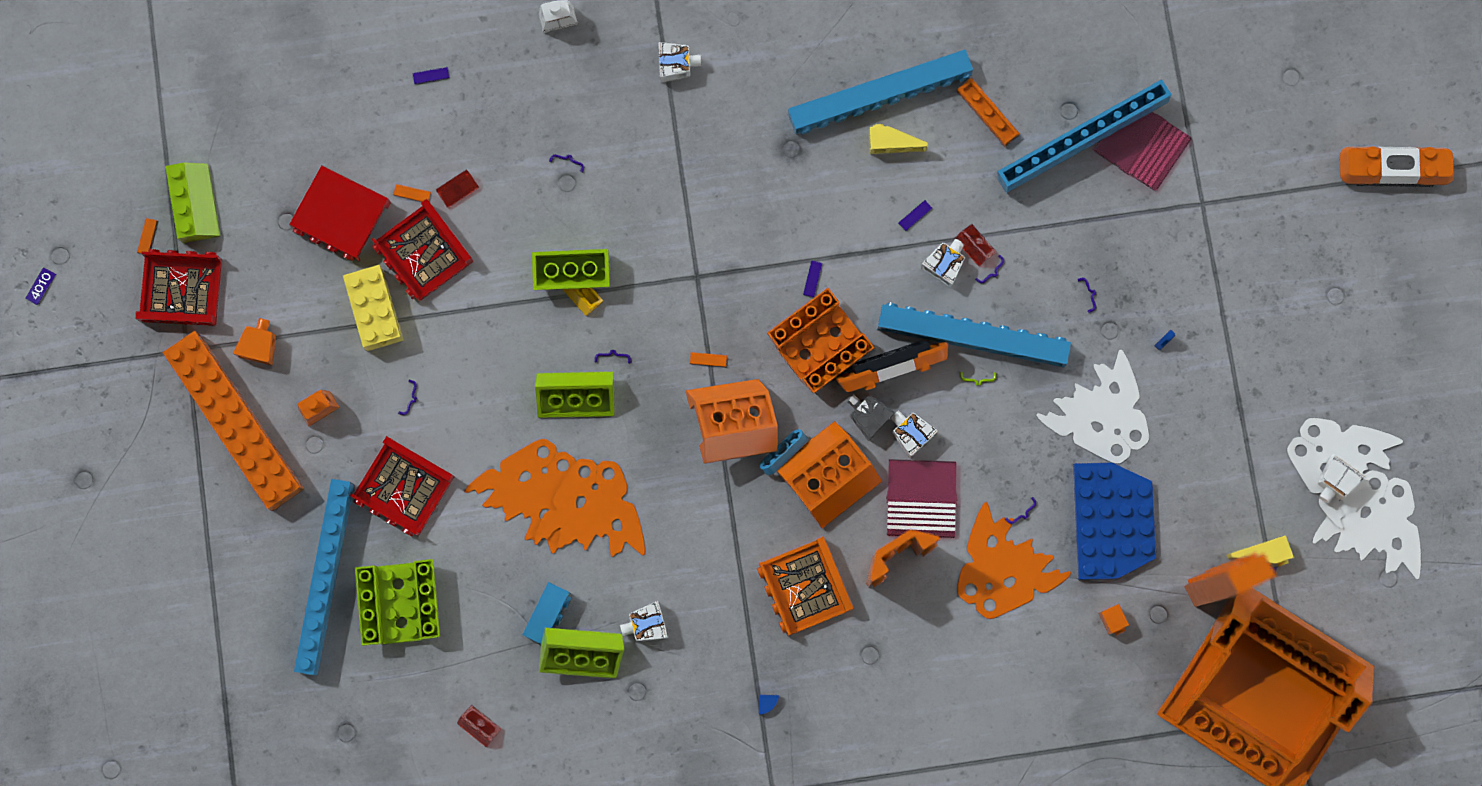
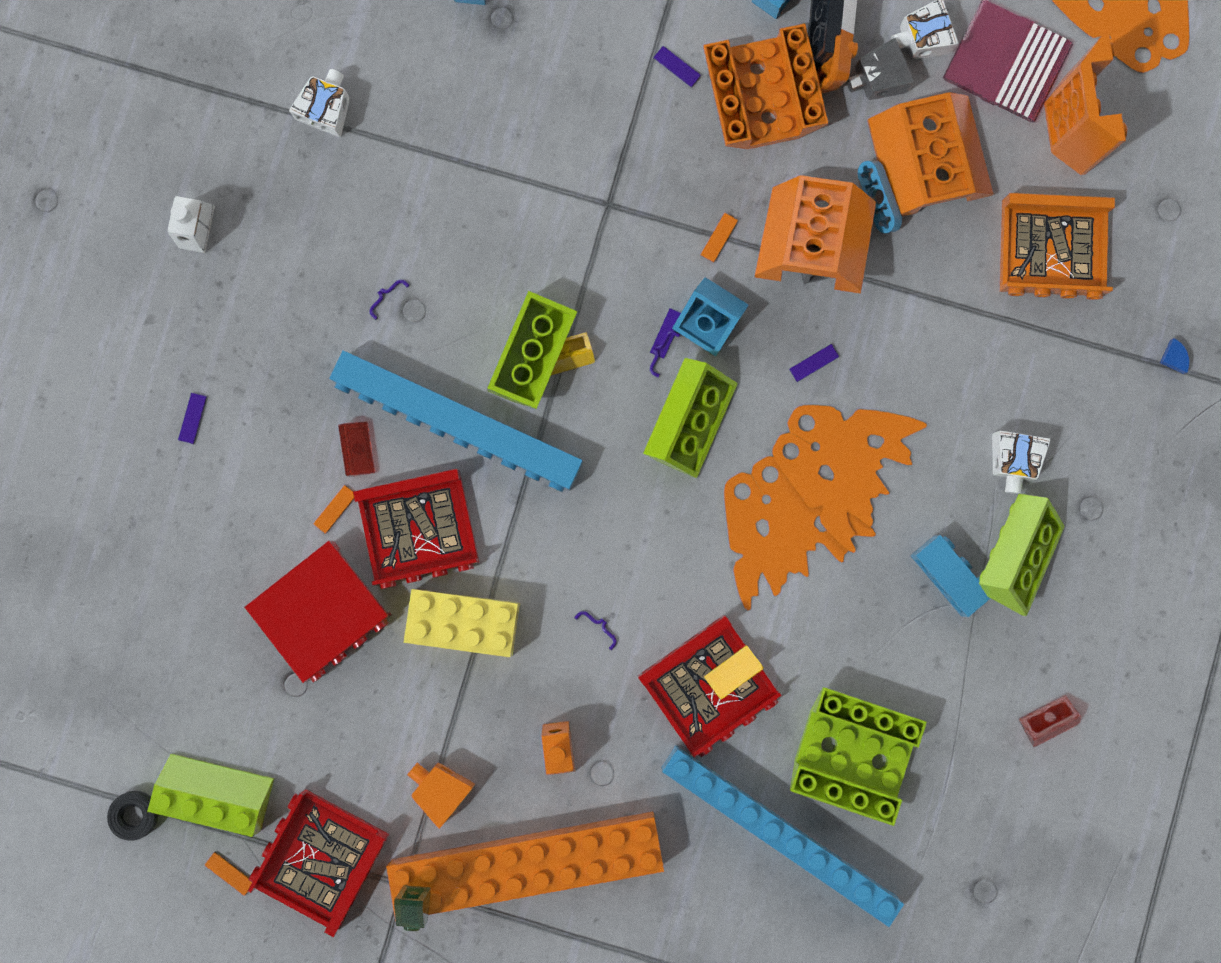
camera: 65 degrees left, 5 degrees up
(149, 150) = (120, 827): none -> black tyre
(175, 356) = (412, 907): none -> clear green slope
(418, 497) = (733, 672): none -> yellow slope
(503, 244) = (456, 420): none -> dark azure brick
(635, 354) = (666, 327): none -> dark purple window
(650, 376) = (710, 316): none -> dark azure slope
(651, 460) = (814, 363): none -> dark purple window

